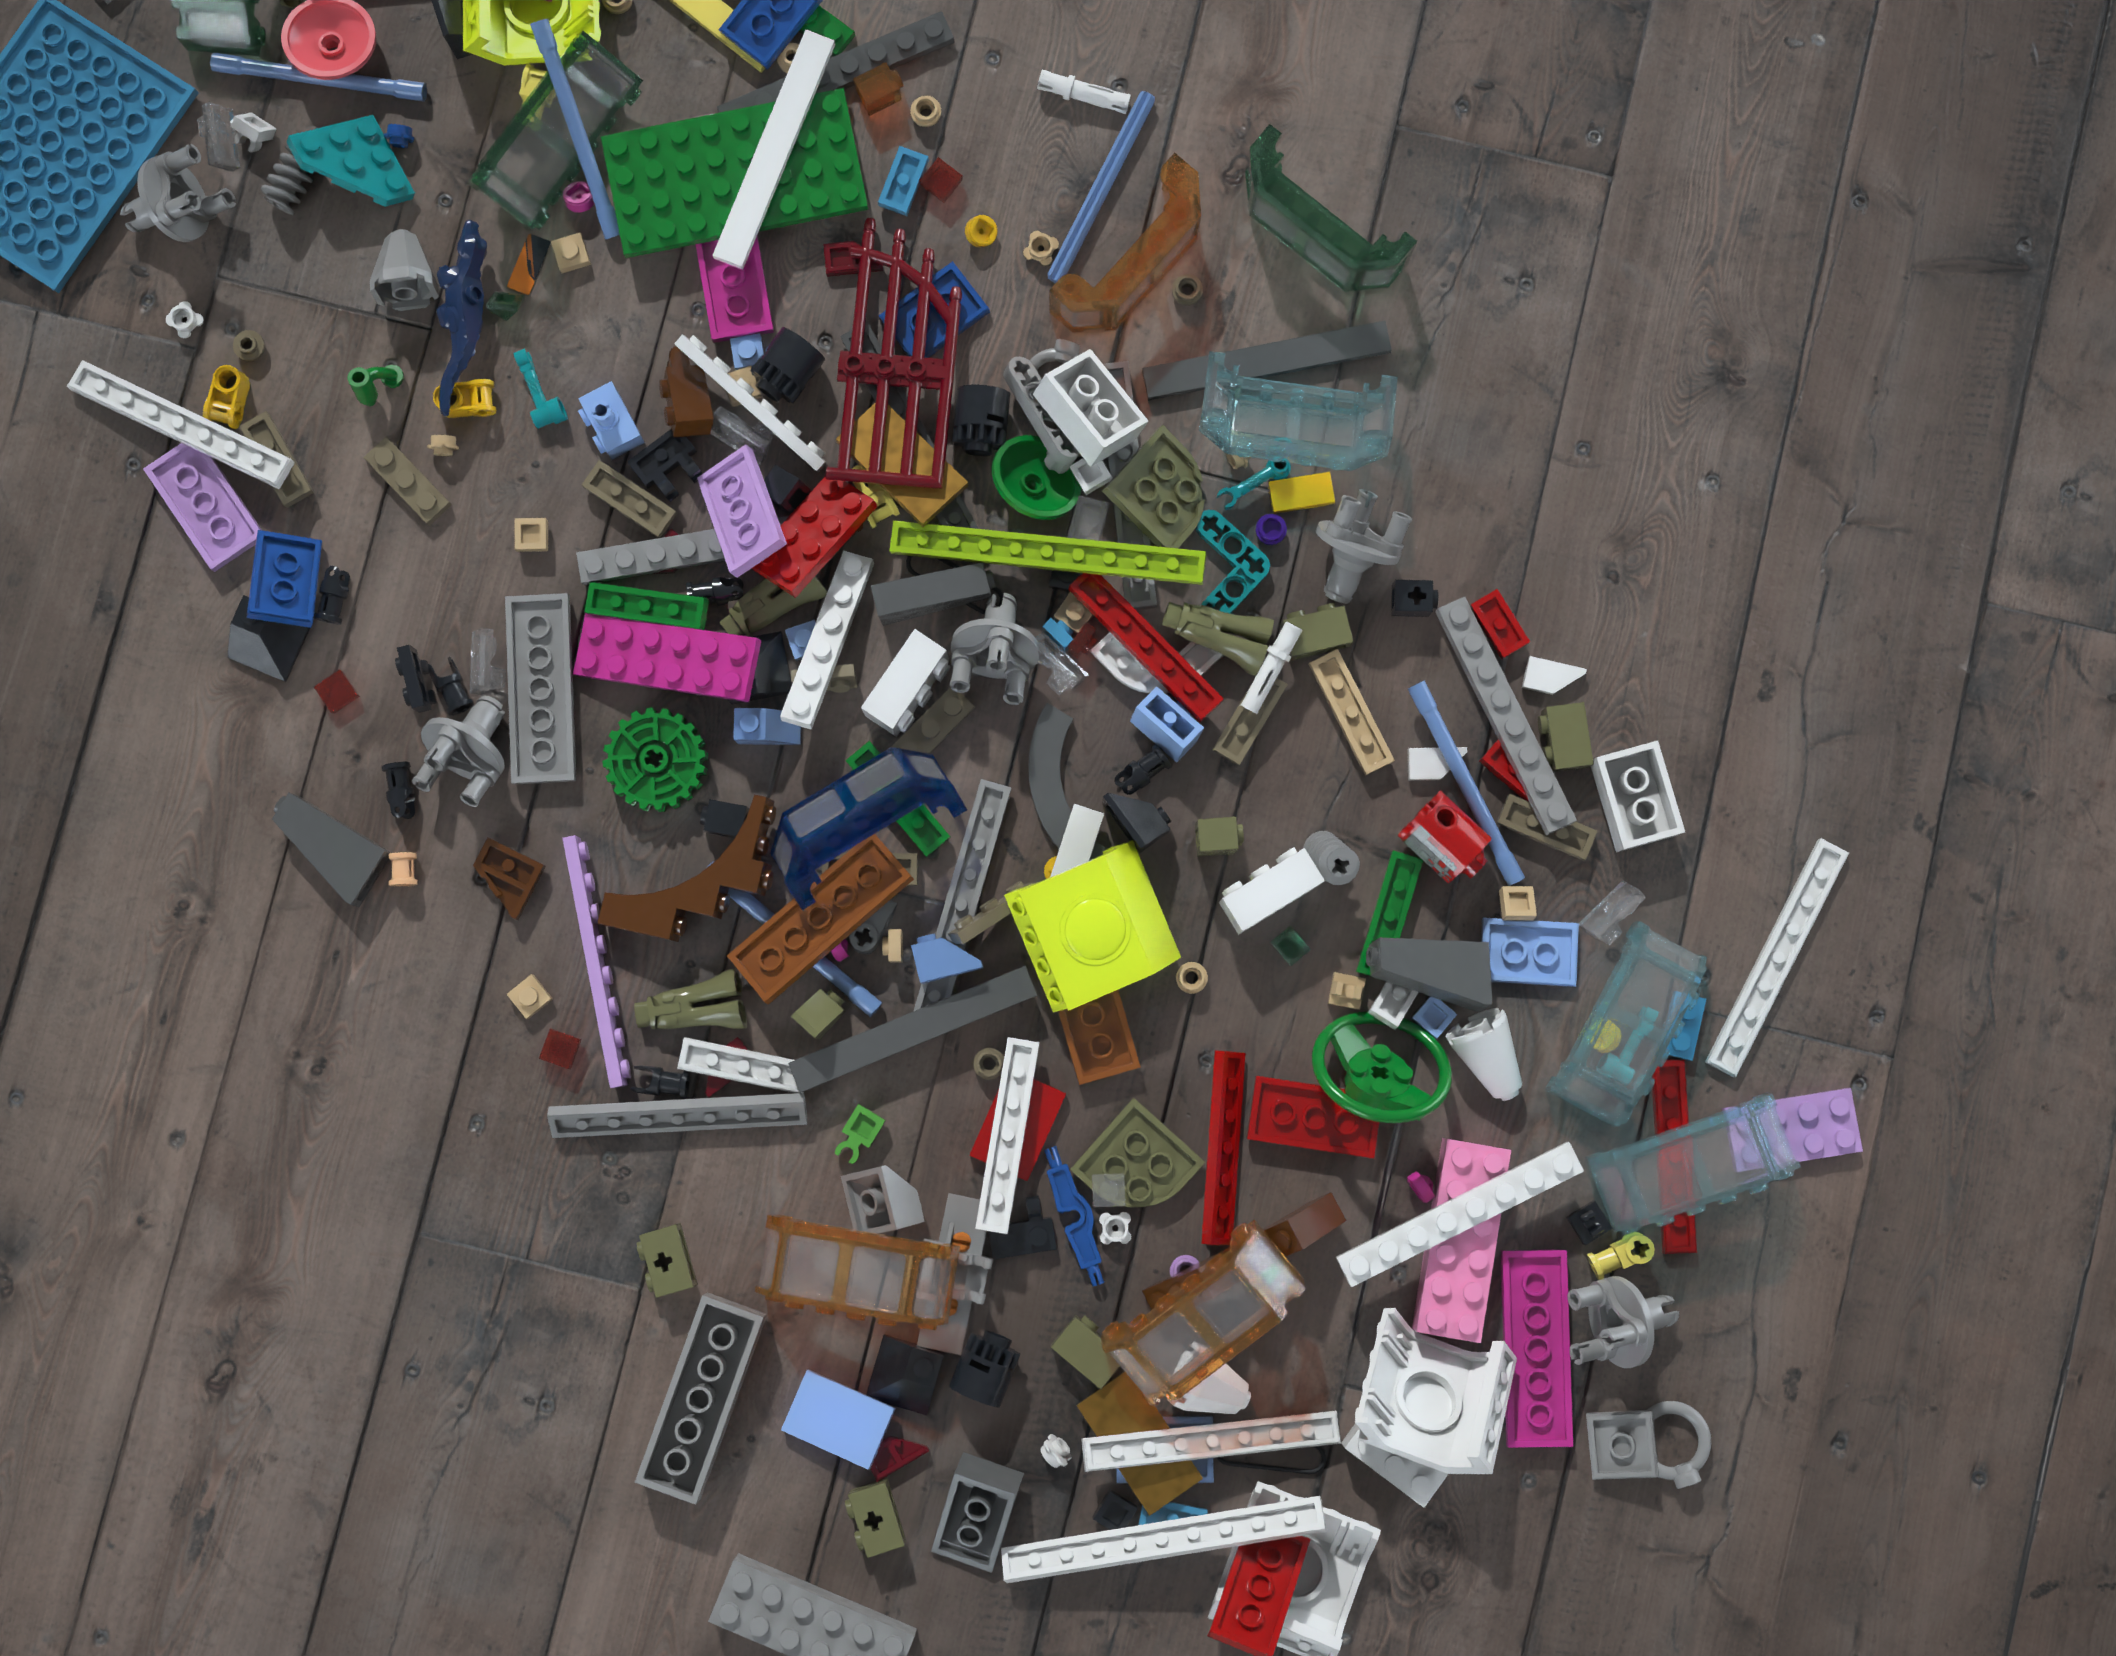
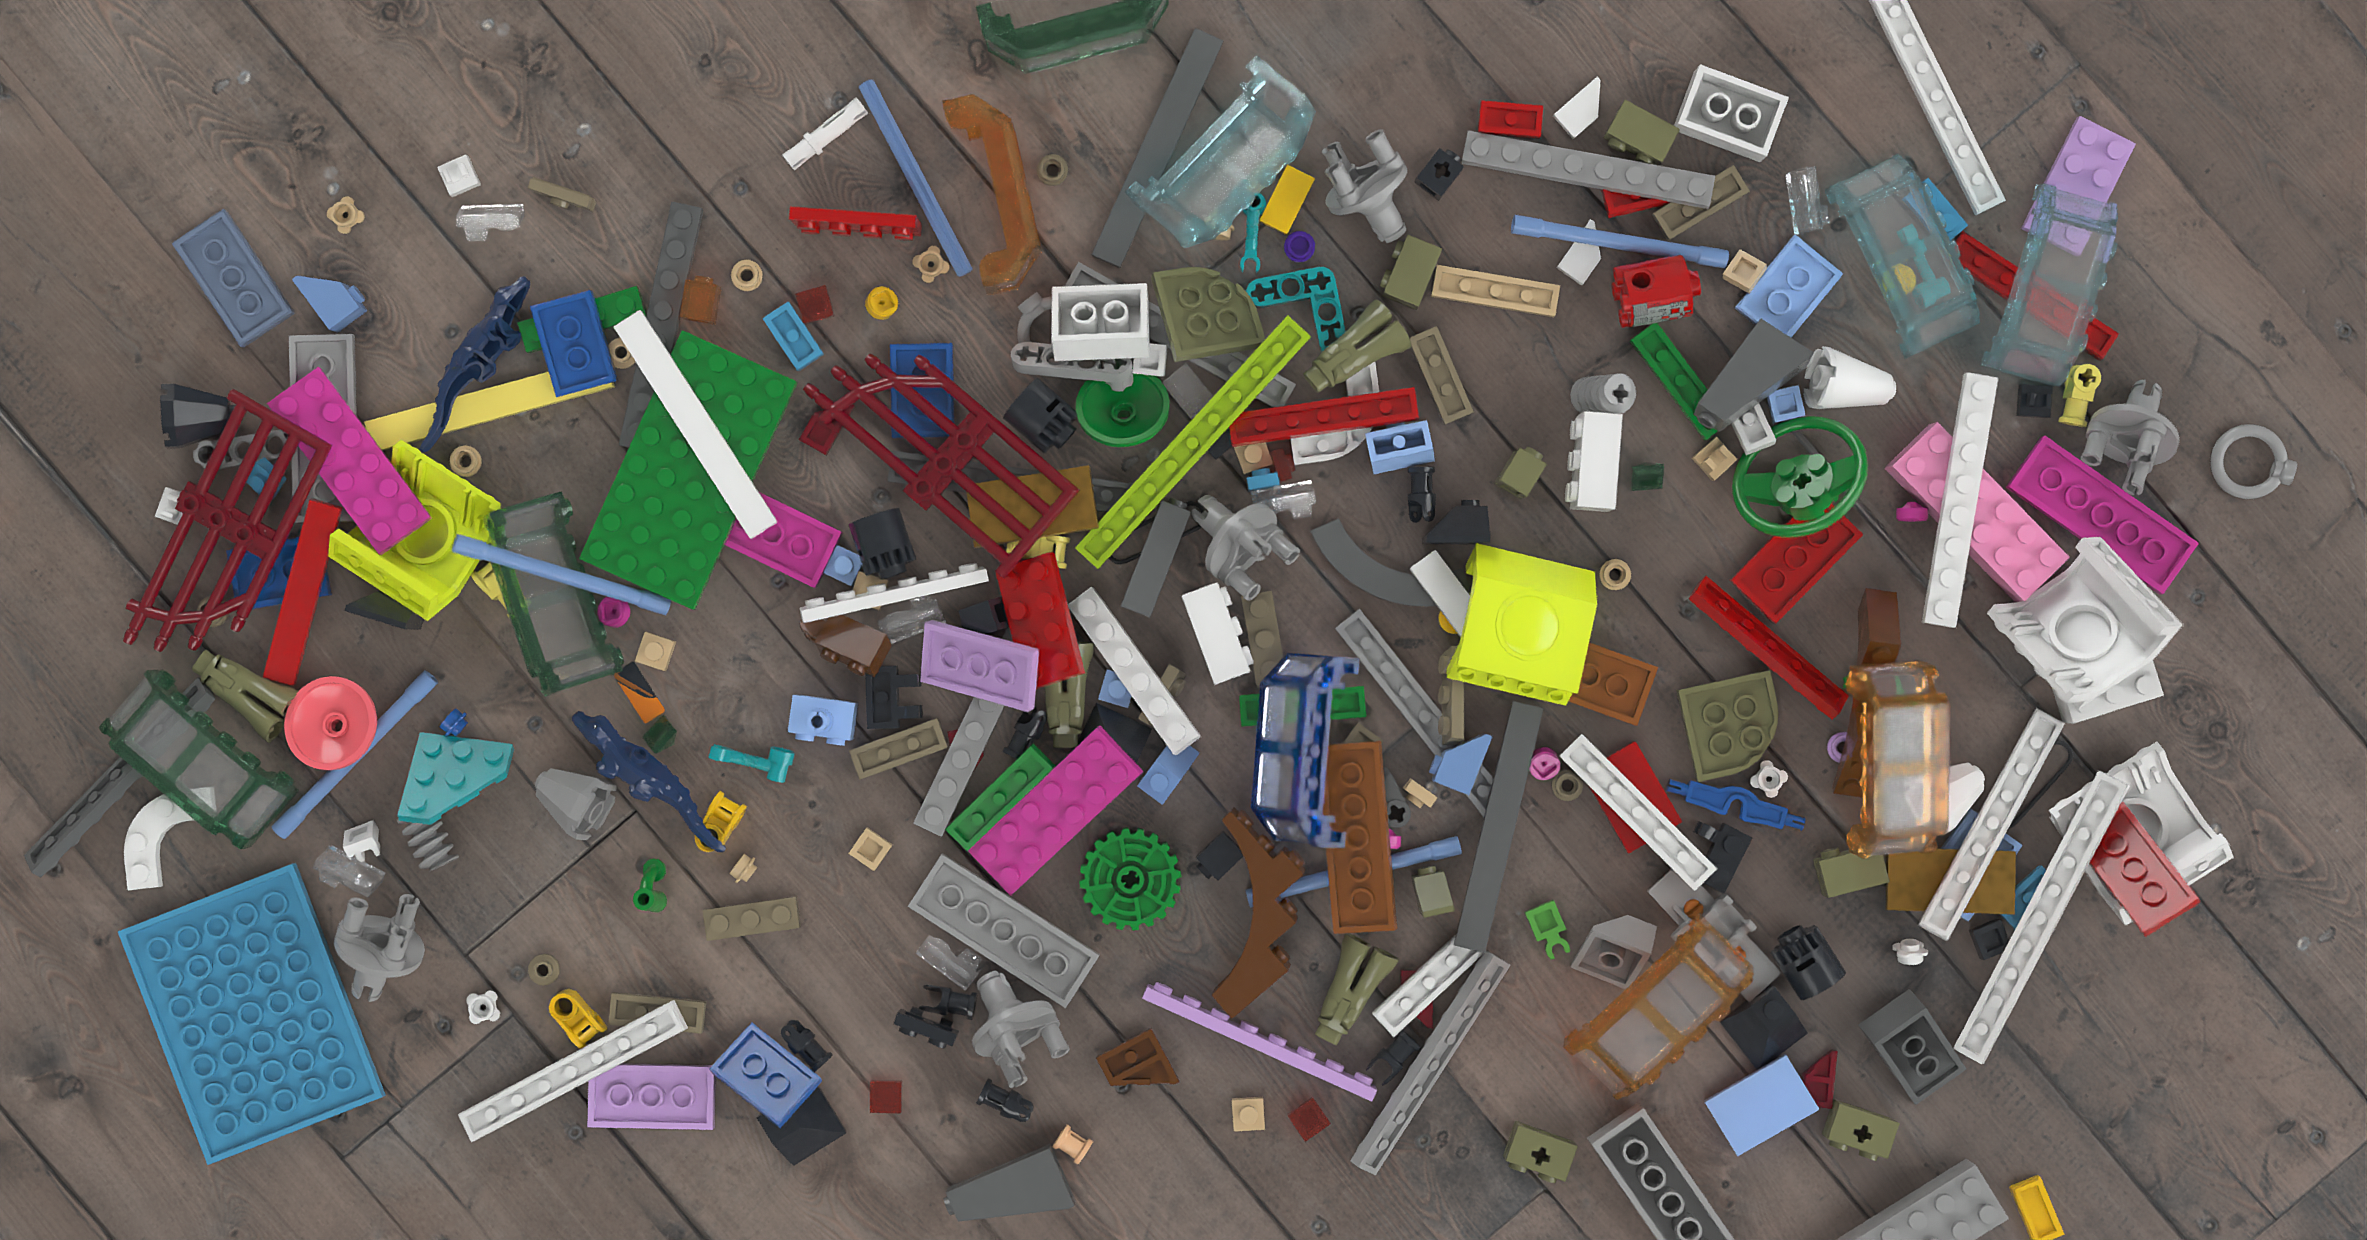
camera: 60 degrees left, 5 degrees up
(993, 1031) = (1544, 763): none -> dark pink tile
(1025, 155) = (844, 222): none -> red plate
(1108, 1190) = (1738, 763): clear plate -> none
(1271, 667) = (1410, 317): white pin -> none
(1622, 1444) = (2225, 503): light grey tile -> none

